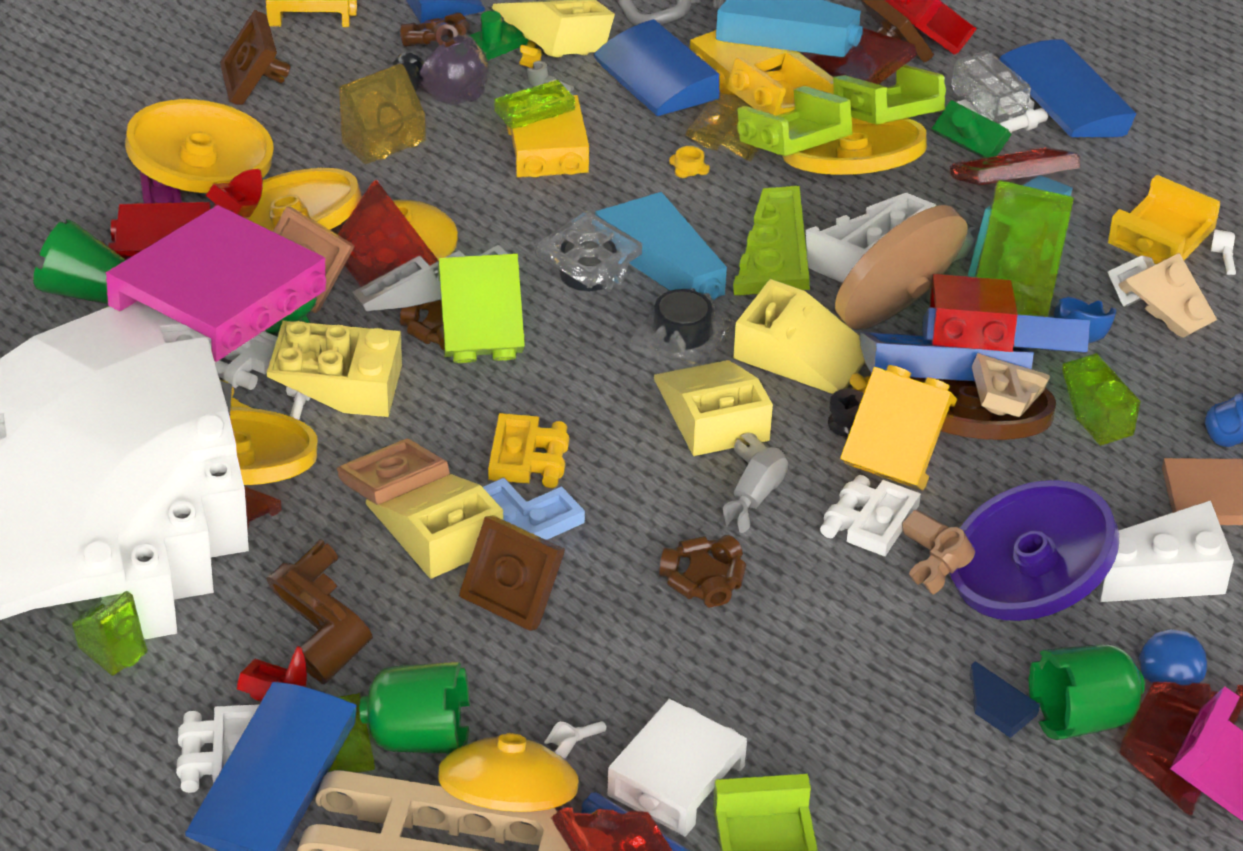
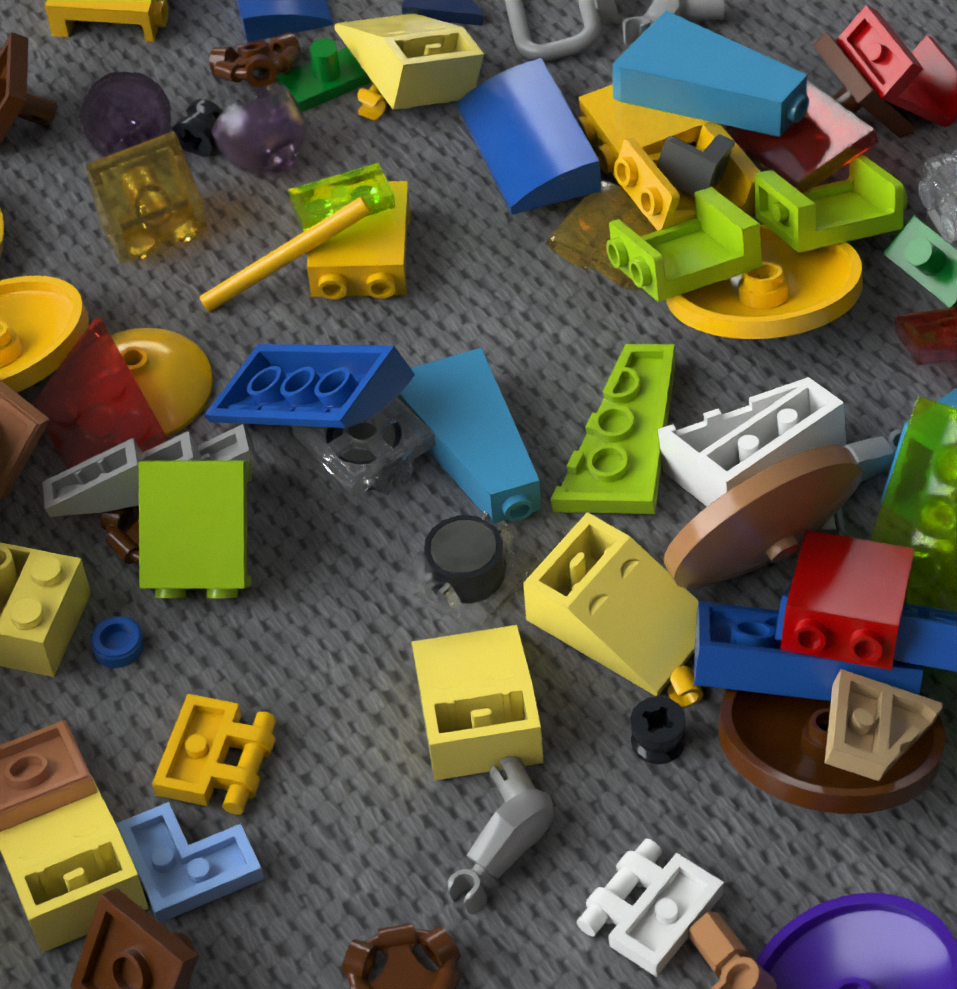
camera: 15 degrees right, 10 degrees up
(346, 59) = (123, 112): none -> clear purple cylinder
(432, 391) = (117, 642): none -> blue tile
(498, 143) = (285, 254): none -> yellow bar
(540, 75) = (379, 138): light grey hand -> none
(546, 214) = (312, 385): none -> blue slope
(689, 162) = (540, 280): yellow plate -> none
(788, 72) = (692, 168): none -> dark grey panel
(898, 426) = (707, 777): yellow panel -> none

